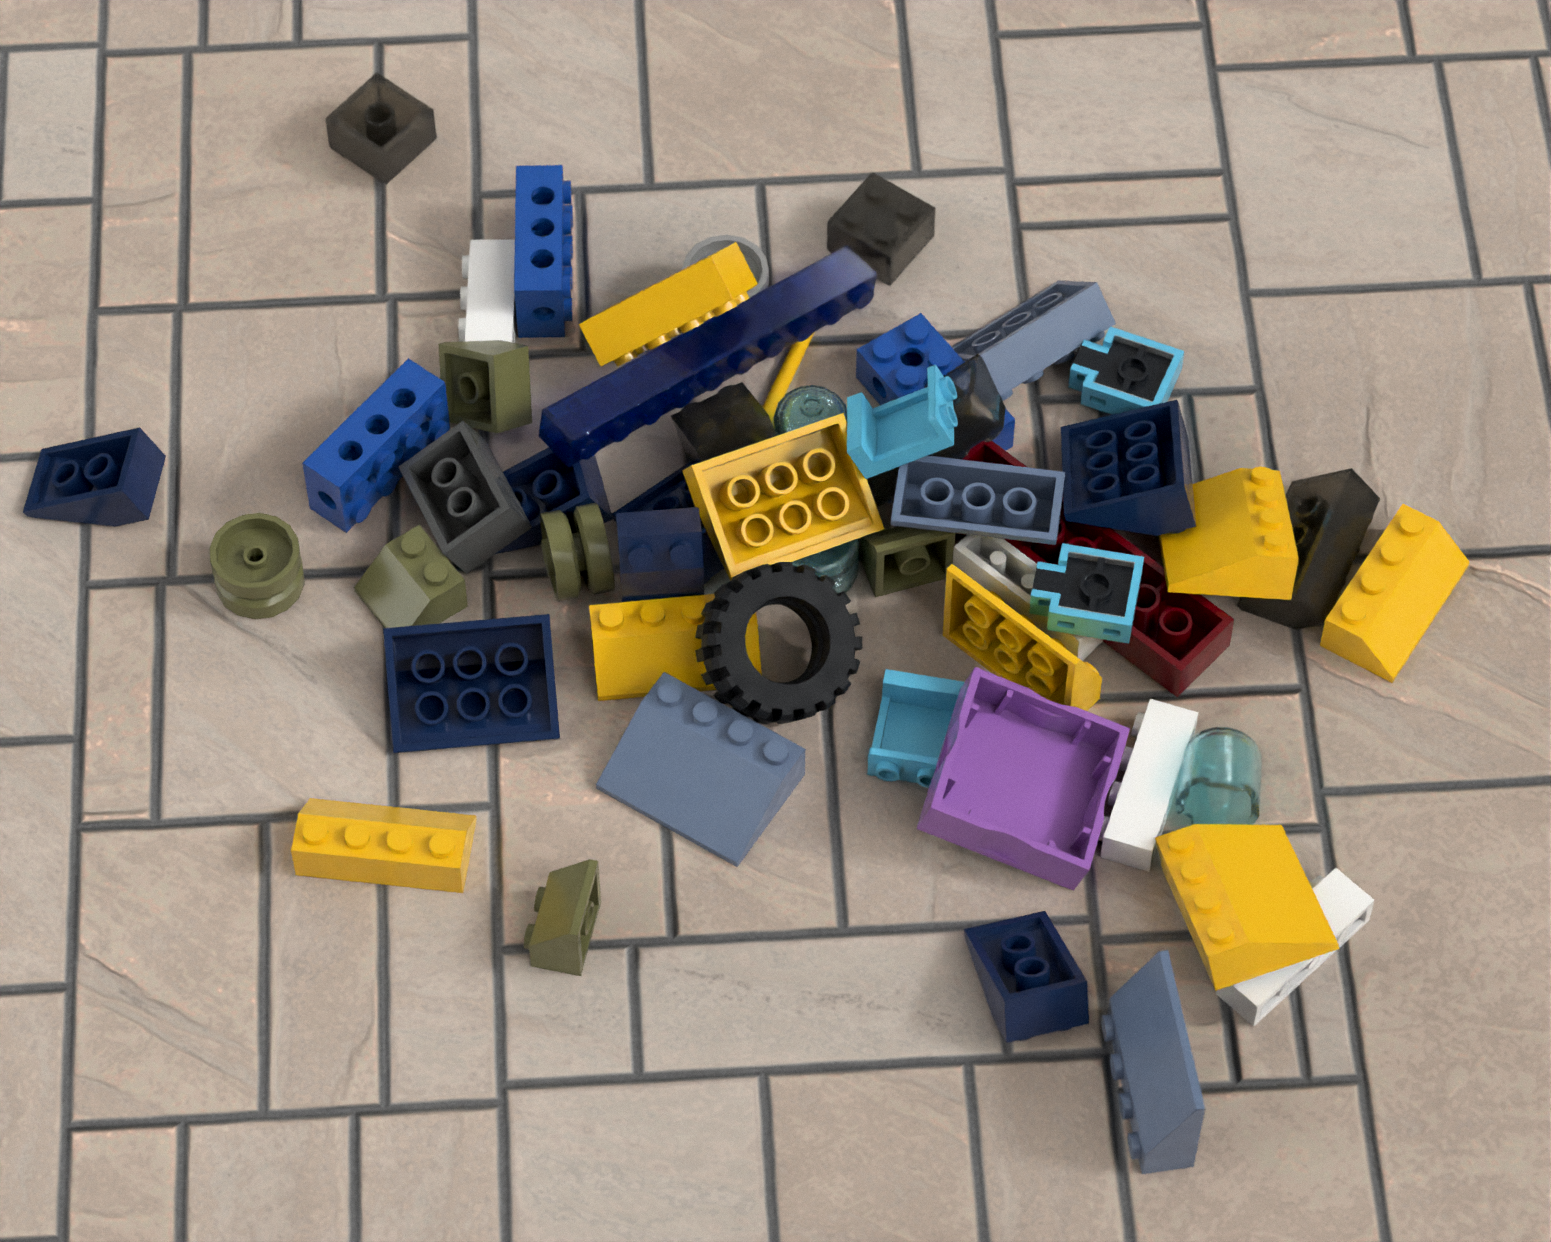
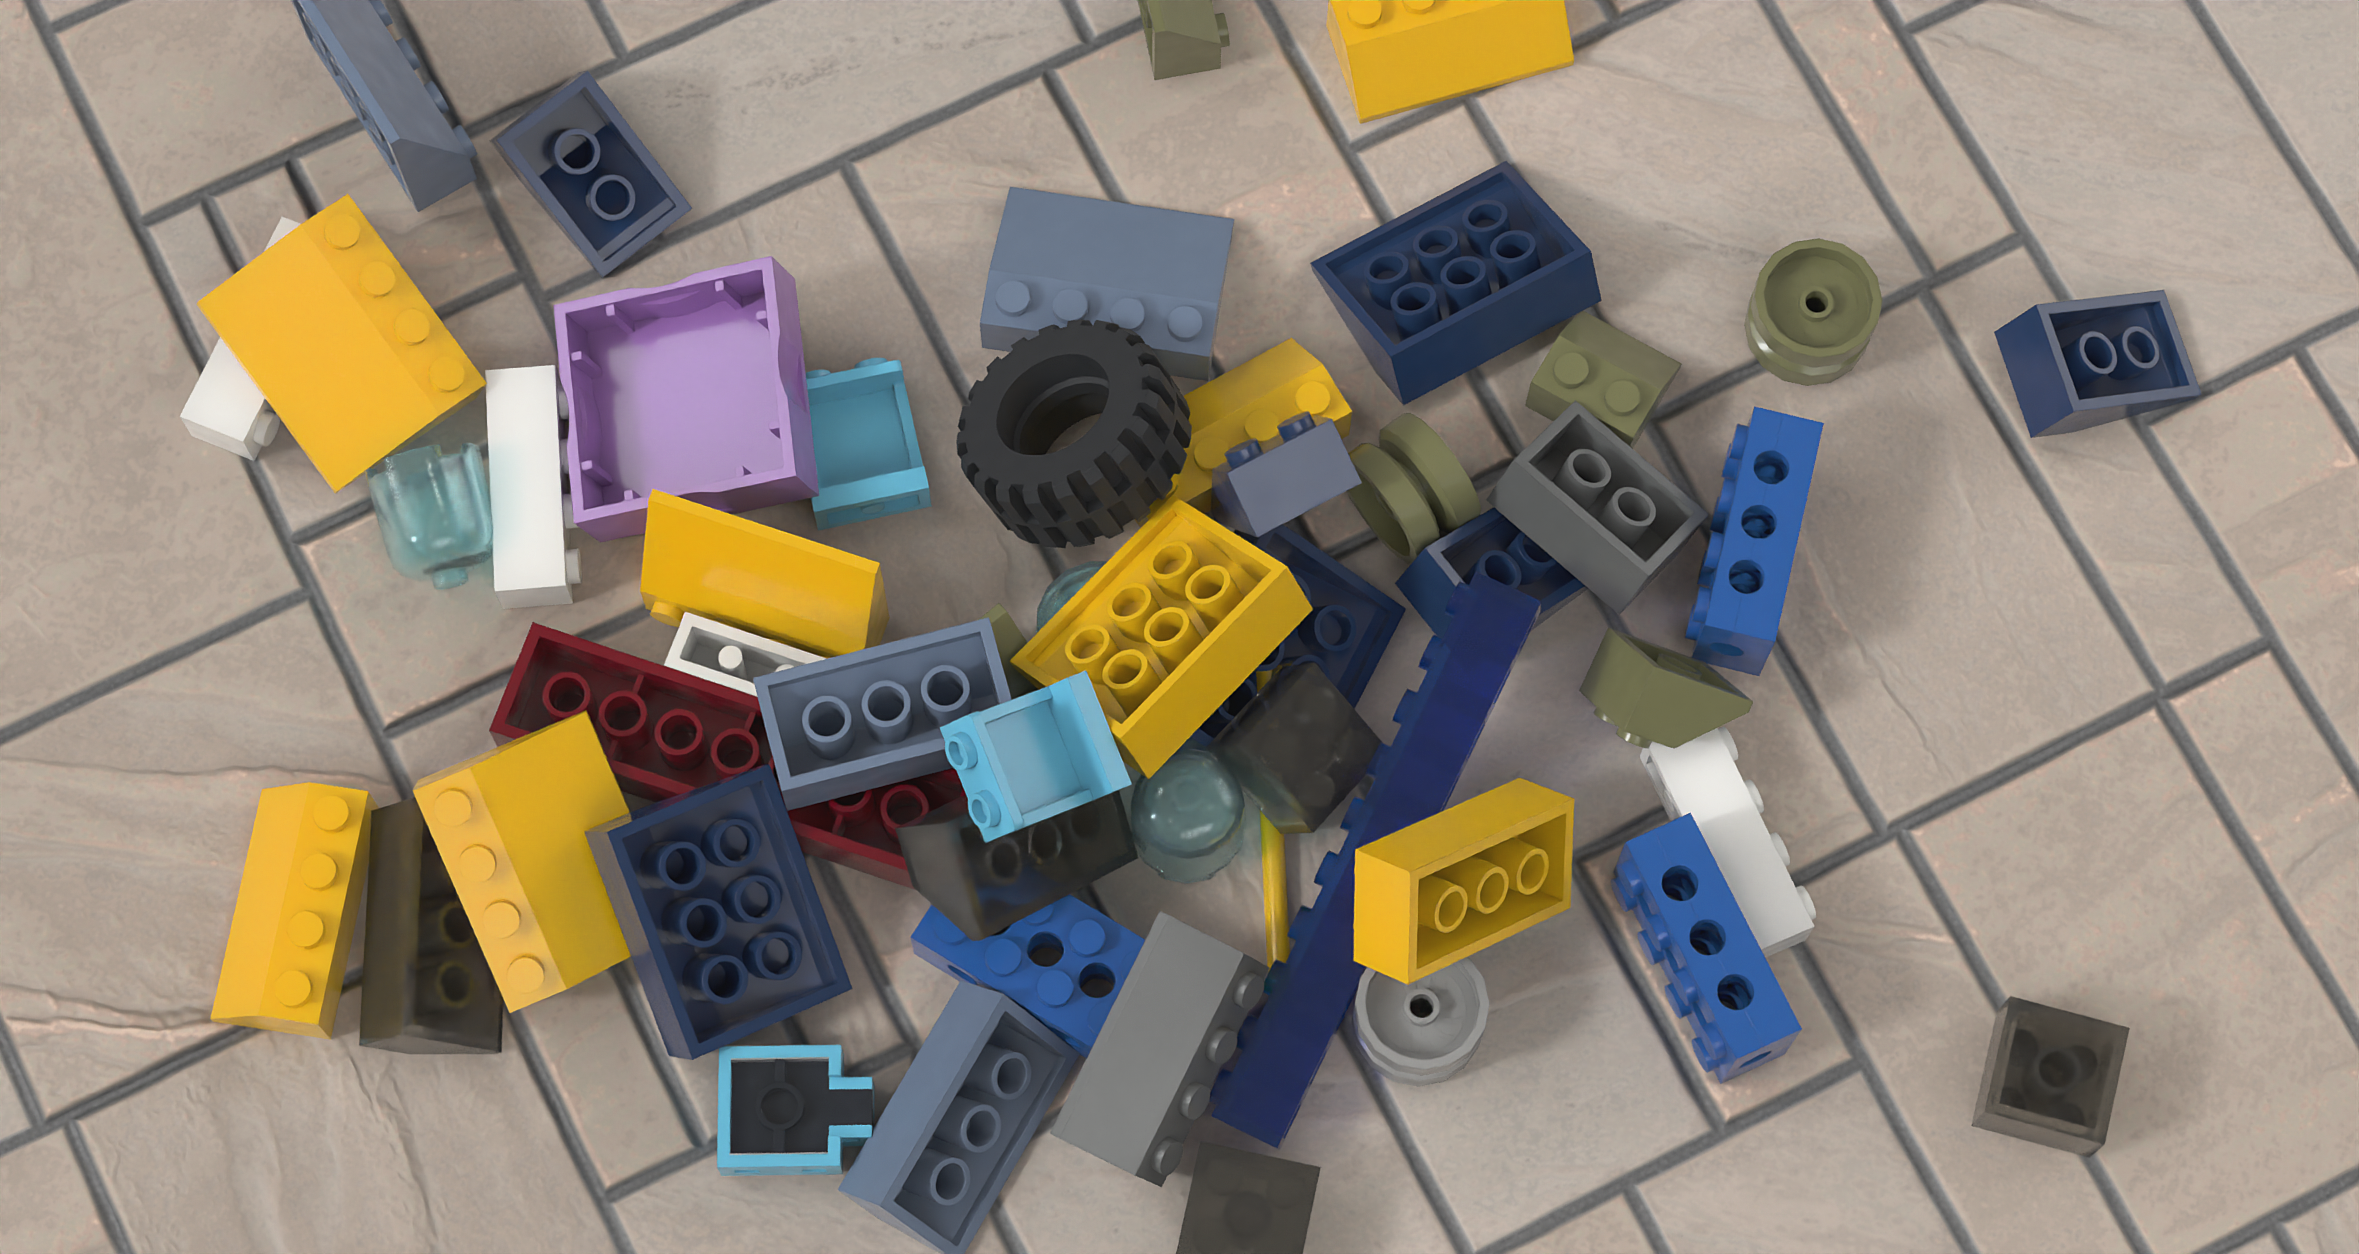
camera: 155 degrees right, 15 degrees up
(893, 299) = (1160, 1050): none -> slope
(1088, 592) = (688, 659): piece -> none

